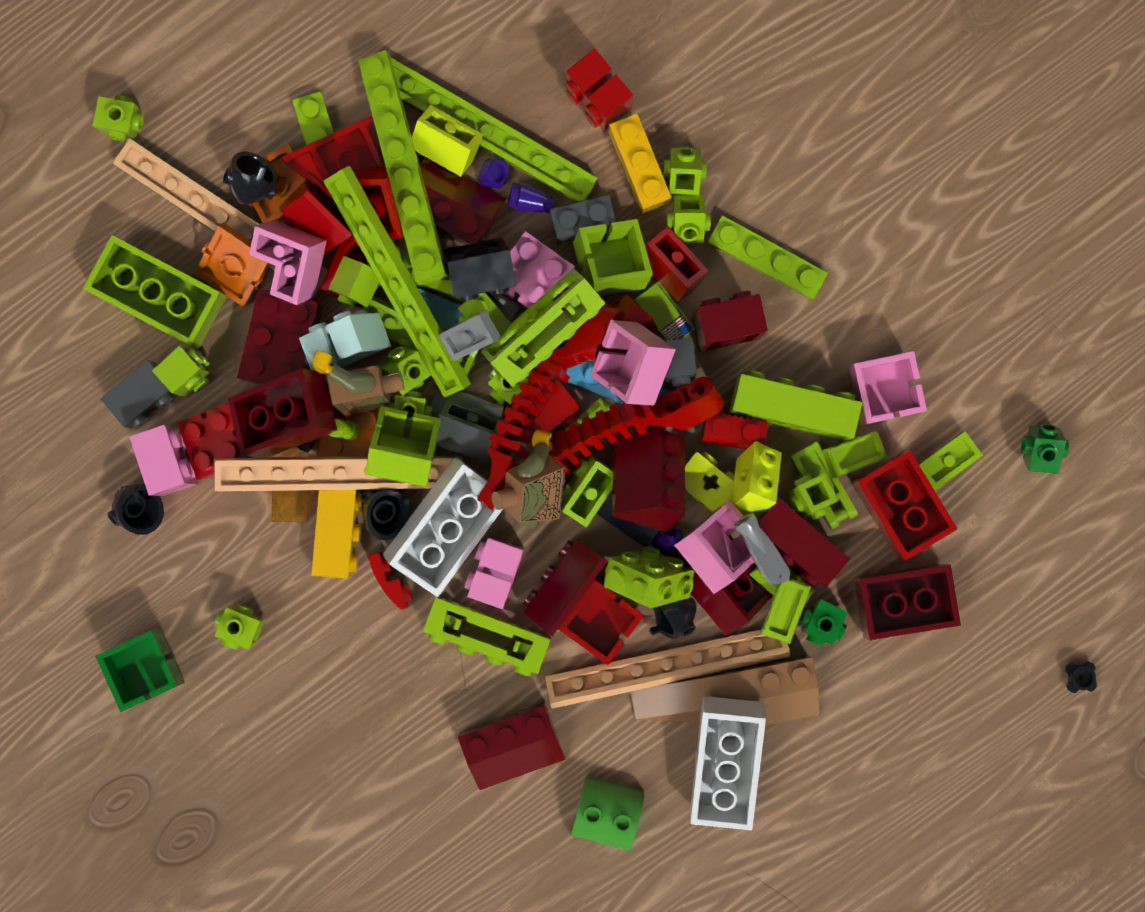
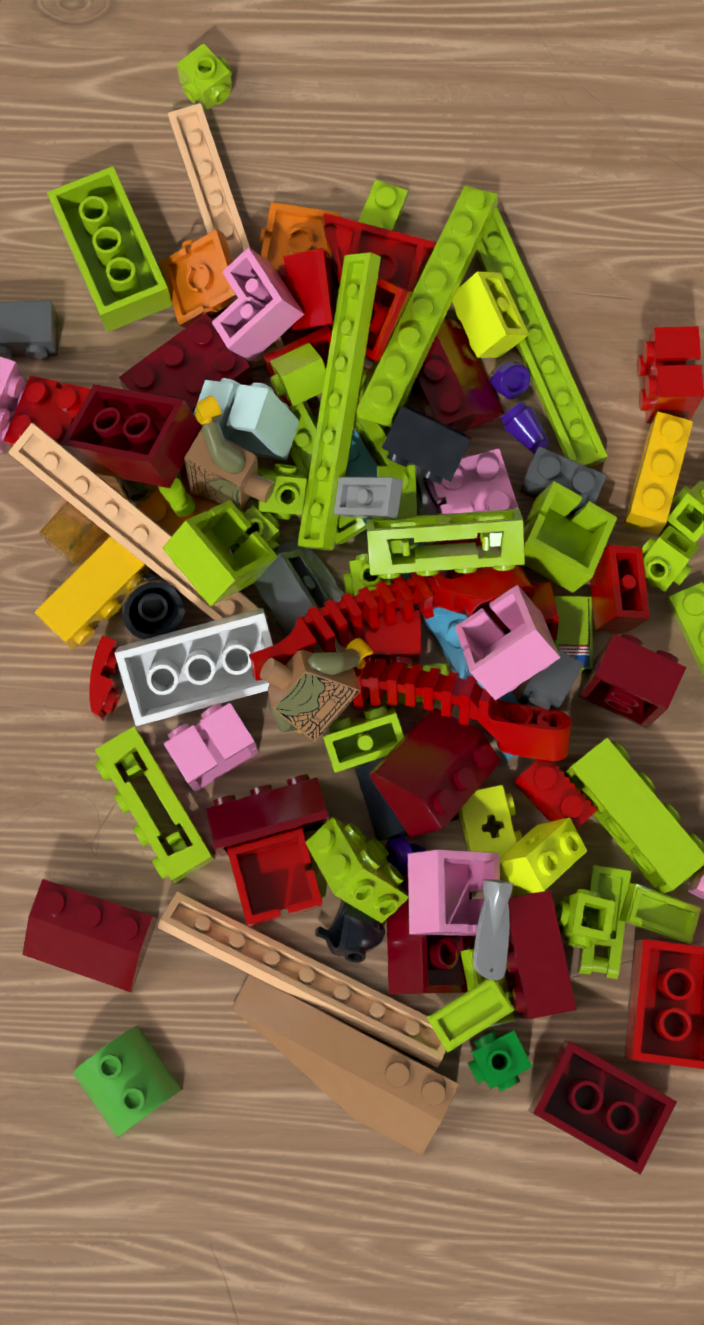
camera: 40 degrees right, 10 degrees down
(184, 371) = (75, 335): lime brick -> none
(250, 178) = (280, 211): black helmet -> none
(727, 763) = (287, 1124): white brick -> none

